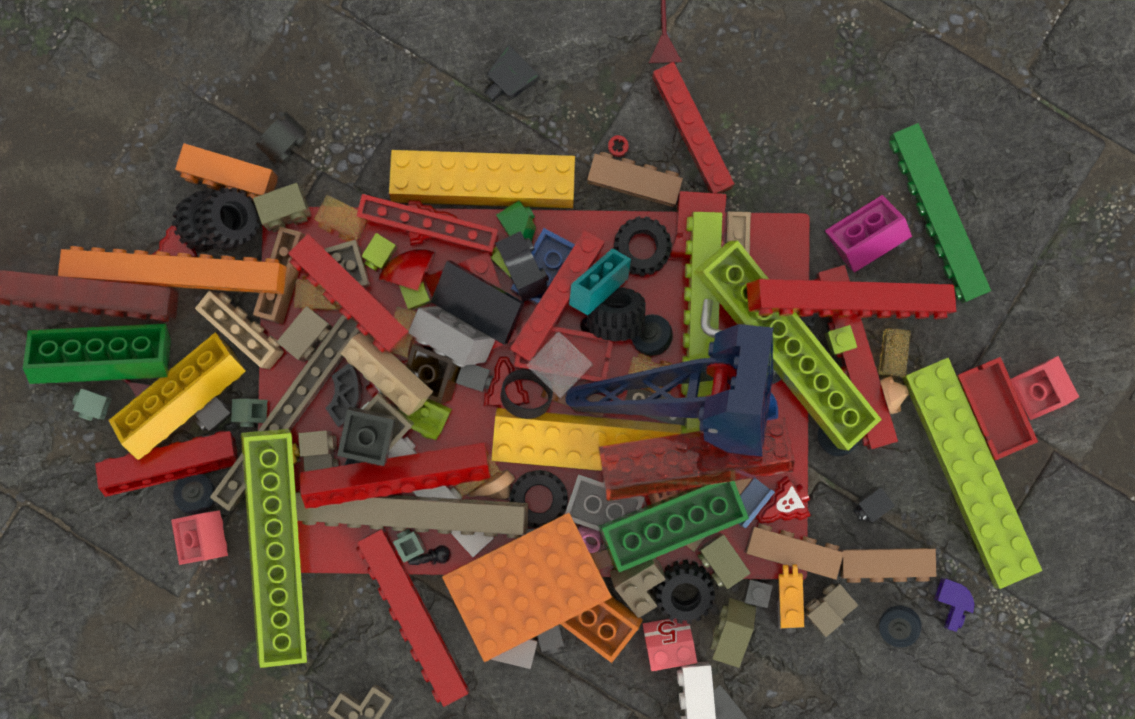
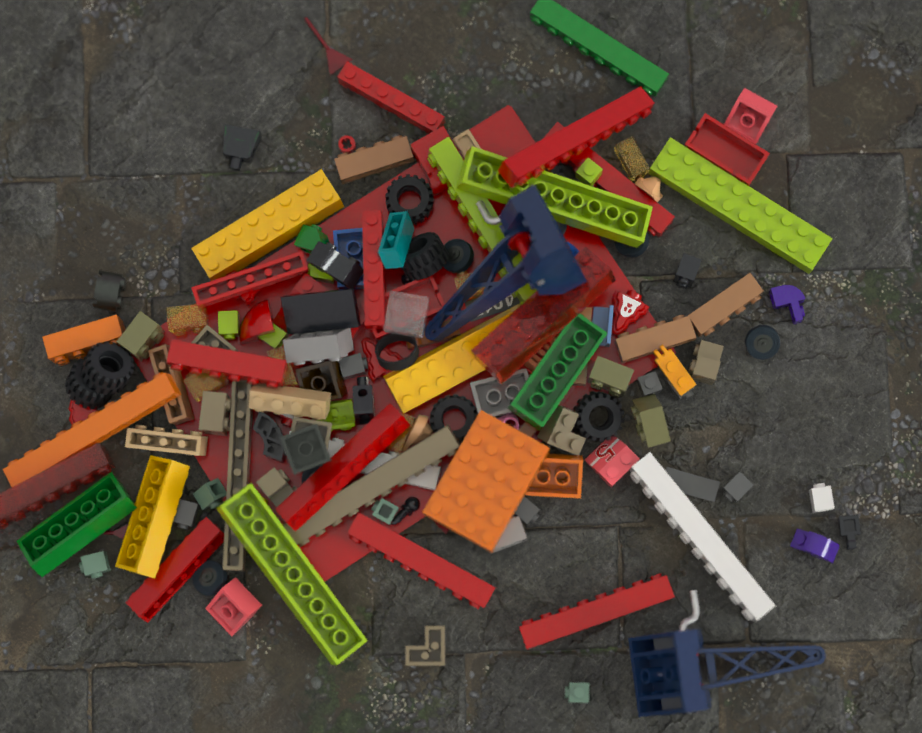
camera: 30 degrees left, 5 degrees down
(456, 428) = (363, 401): none -> black torso
(869, 233) = (559, 90): dark pink slope -> none

